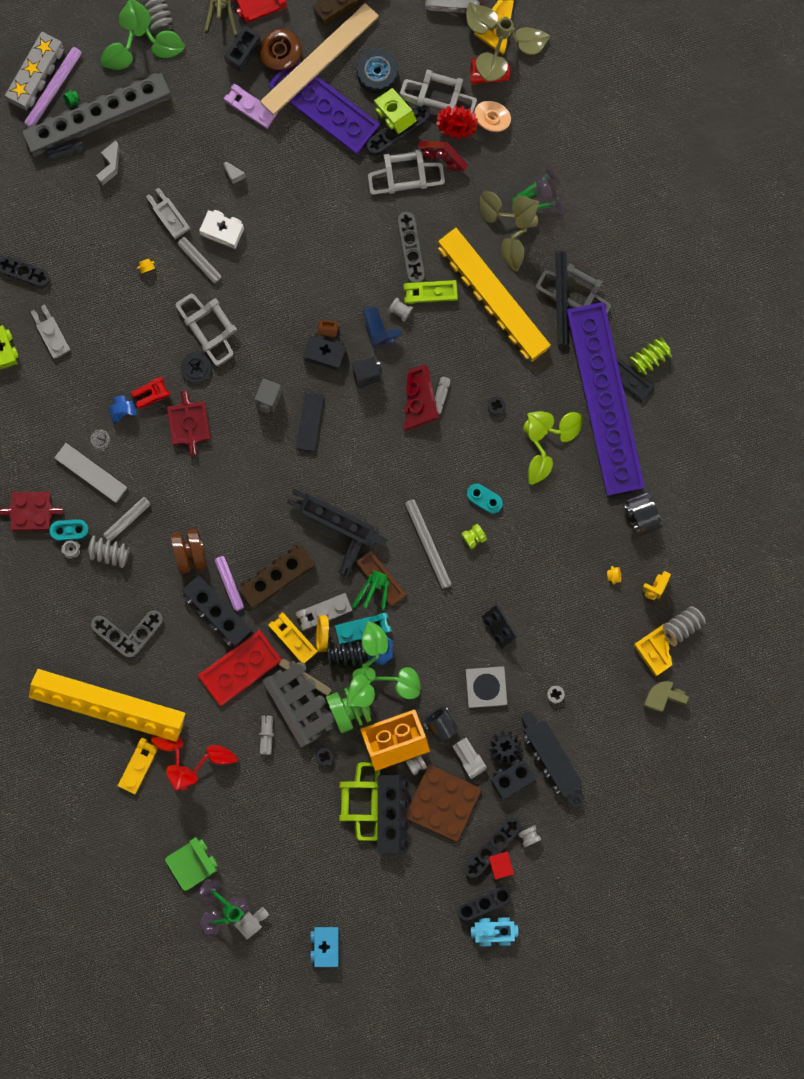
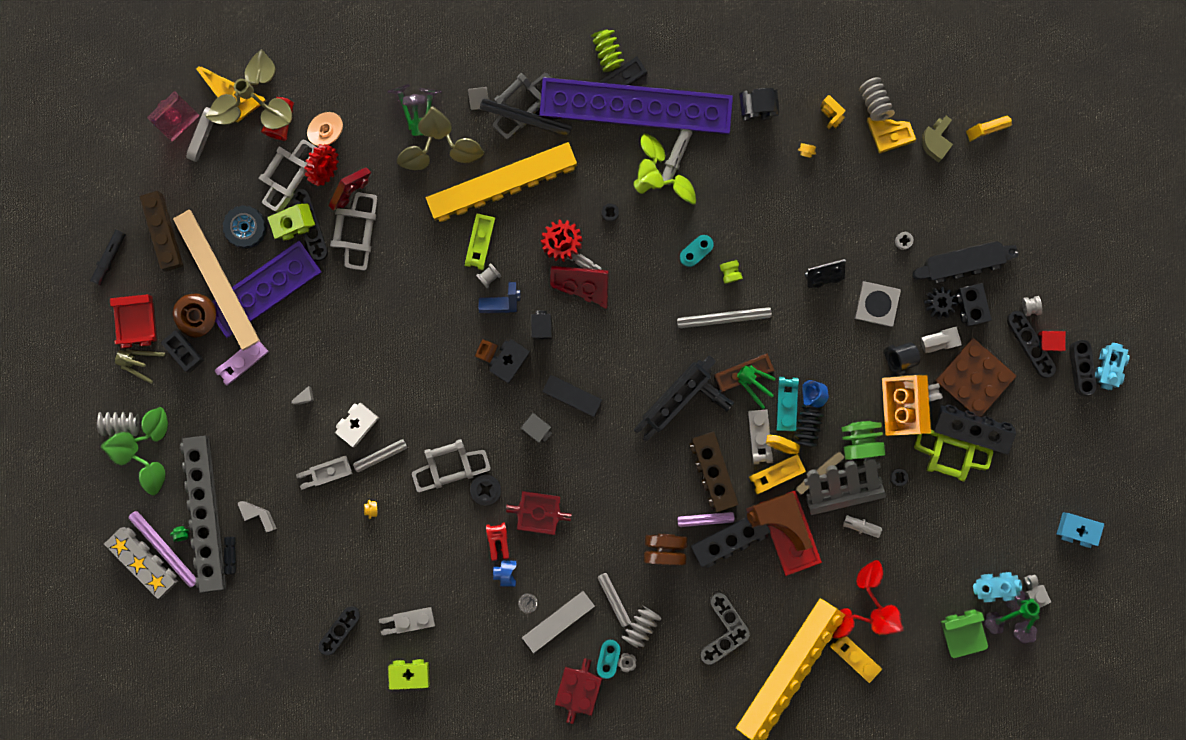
camera: 75 degrees left, 5 degrees up
(248, 886) = (1003, 586): none -> medium azure brick
(254, 652) = (784, 515): none -> reddish brown arch
(360, 692) = (855, 423): bright green plant -> none
(411, 248) = (430, 250): dark grey beam -> none
(454, 367) = (558, 233): none -> red gear
(569, 451) = (676, 155): none -> light grey pin
(570, 247) = (476, 96): none -> light grey slope
(686, 736) = (982, 129): none -> yellow piece

